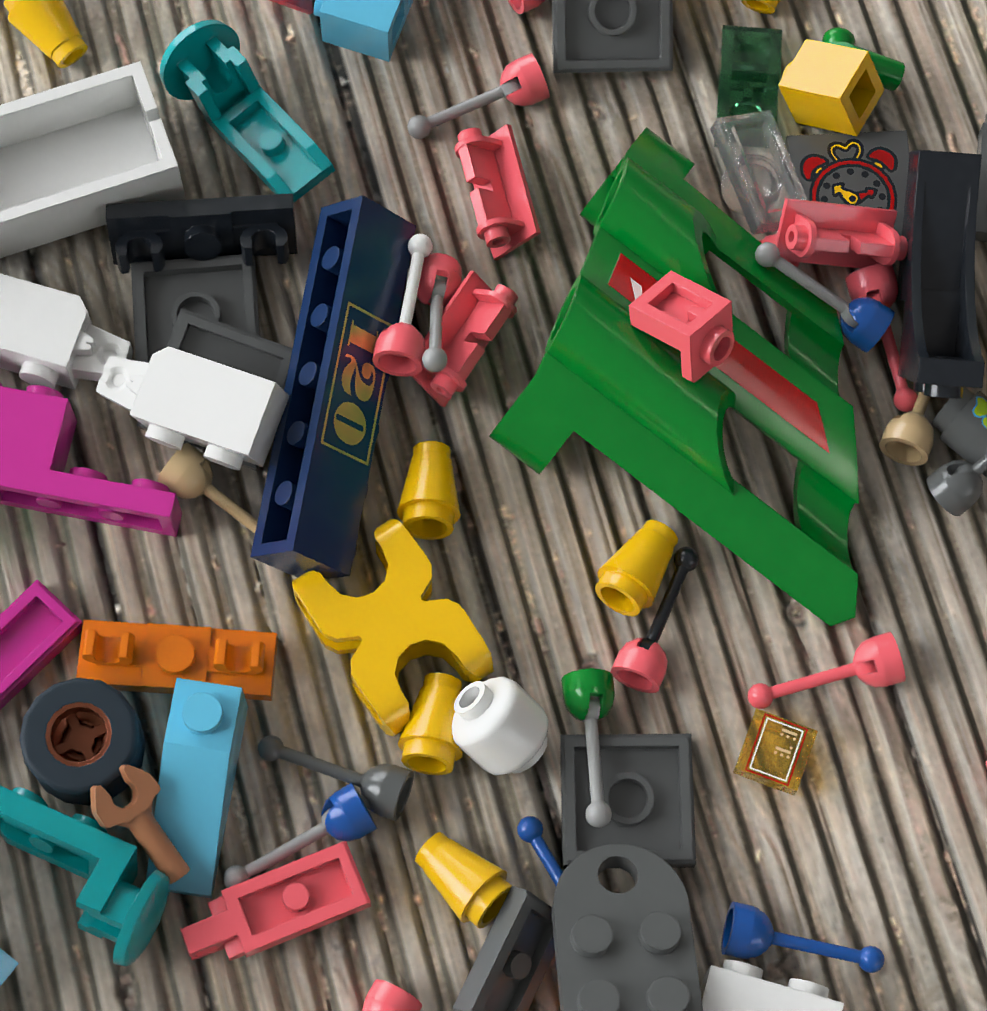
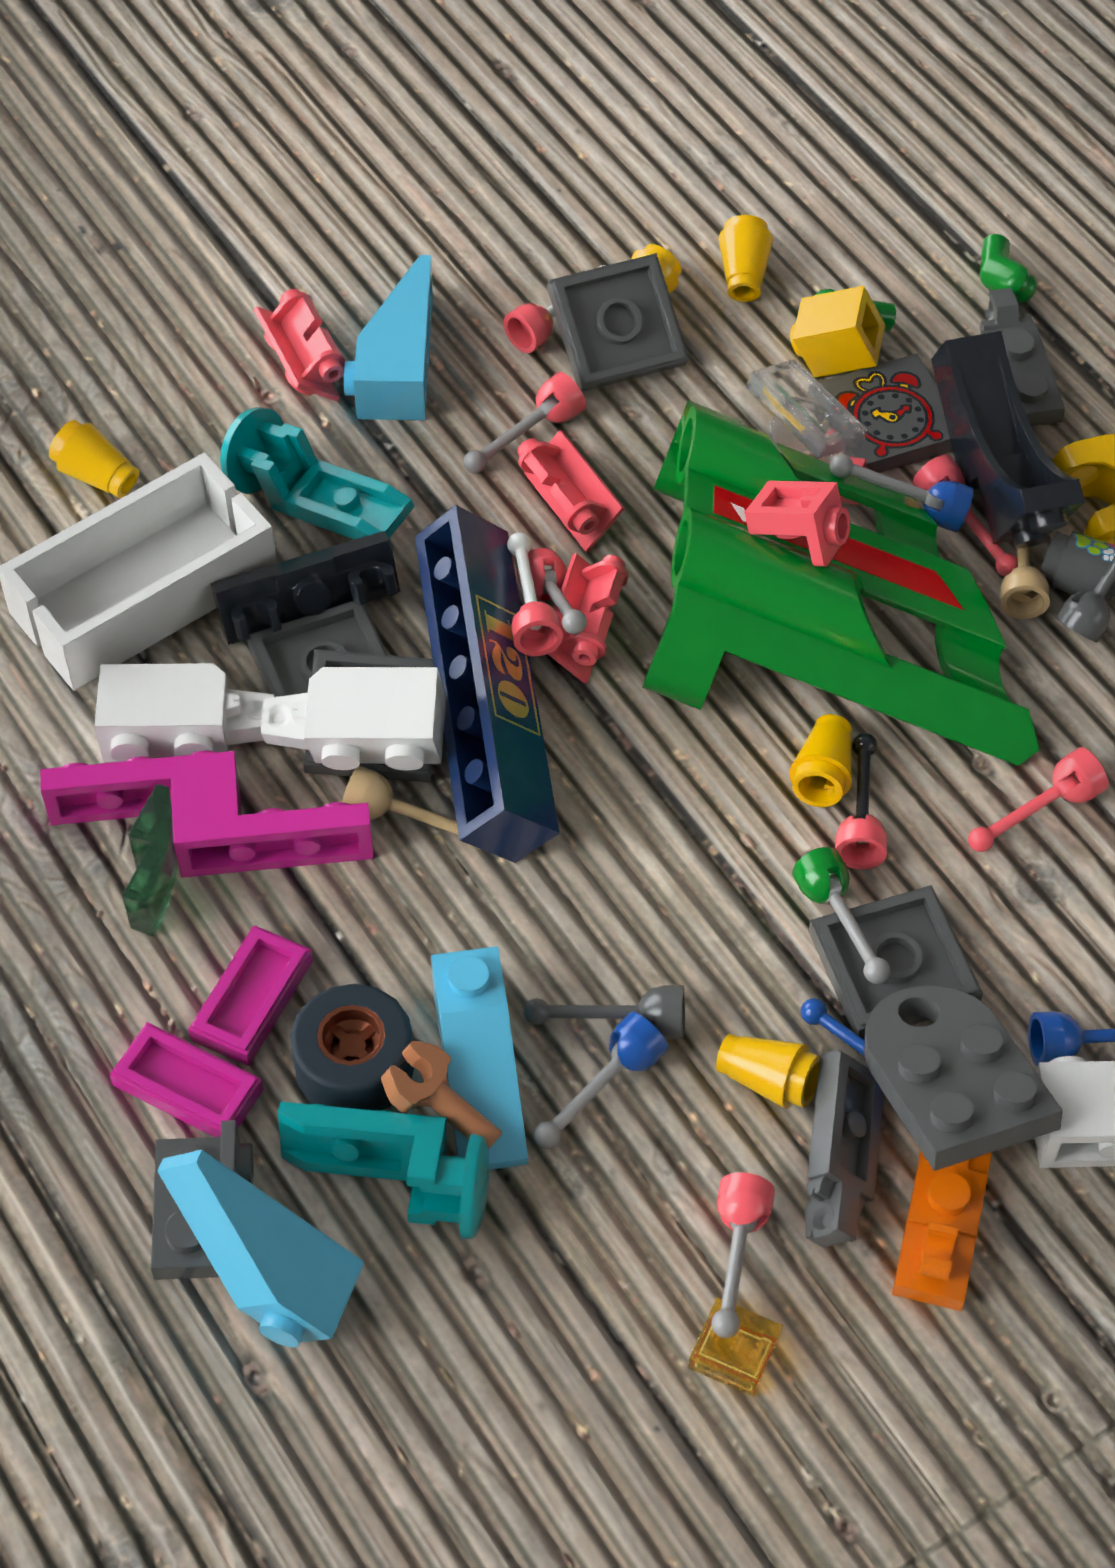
camera: 15 degrees left, 15 degrees down
(154, 655) = (401, 957): orange plate -> none
(280, 905) = (600, 1144): coral hinge -> none
(392, 626) = (615, 870): yellow piece -> none
(428, 734) = (689, 945): yellow cone -> none
(429, 494) = (606, 752): yellow cone -> none
(499, 726) = (753, 921): white head -> none
(748, 71) = (753, 342): clear green slope -> none
(775, 752) = (1014, 881): clear yellow tile -> none
(838, 234) = (897, 438): coral hinge -> none

